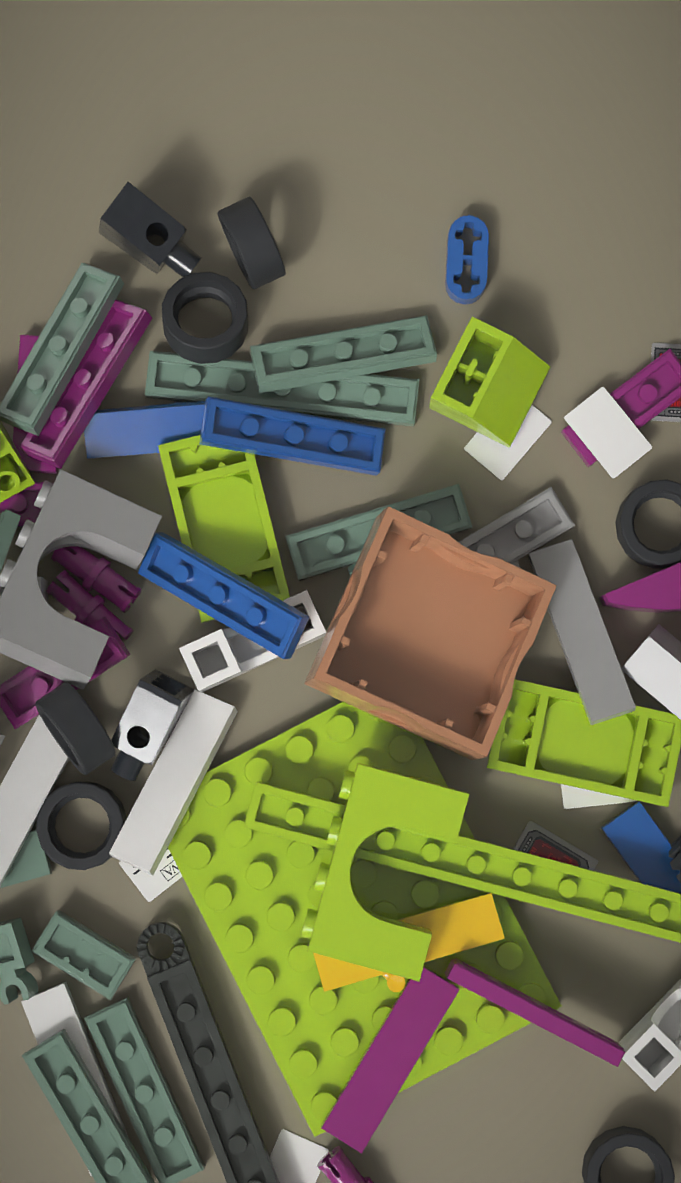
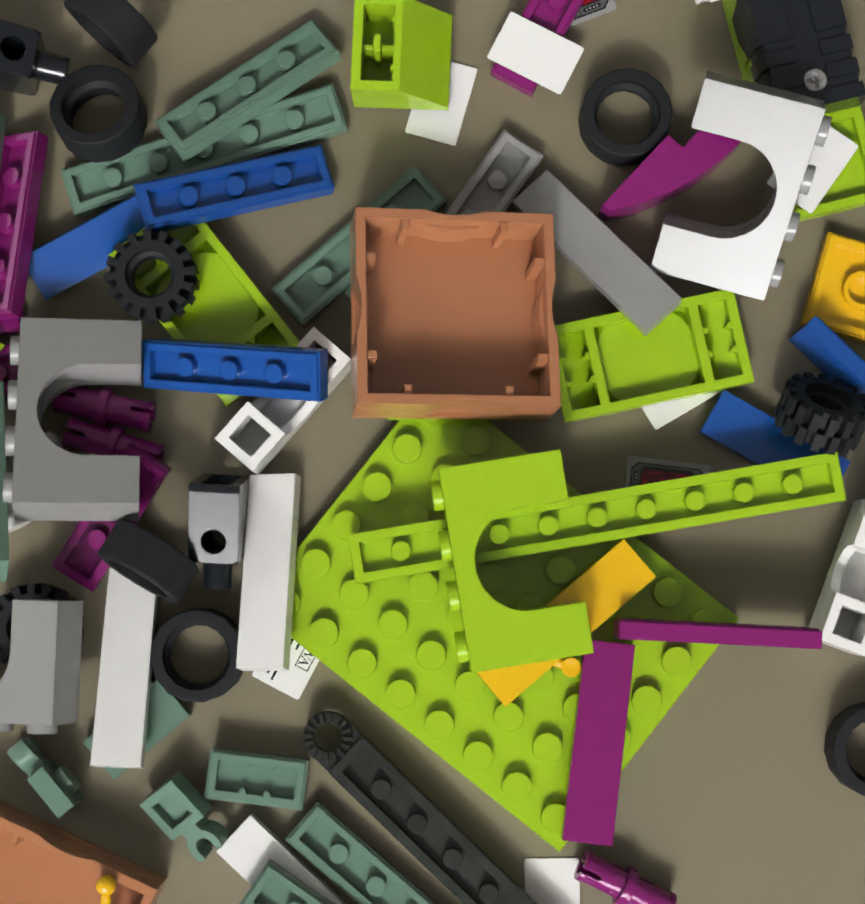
camera: 25 degrees left, 0 degrees up
(184, 455) = (145, 248): none -> black tyre

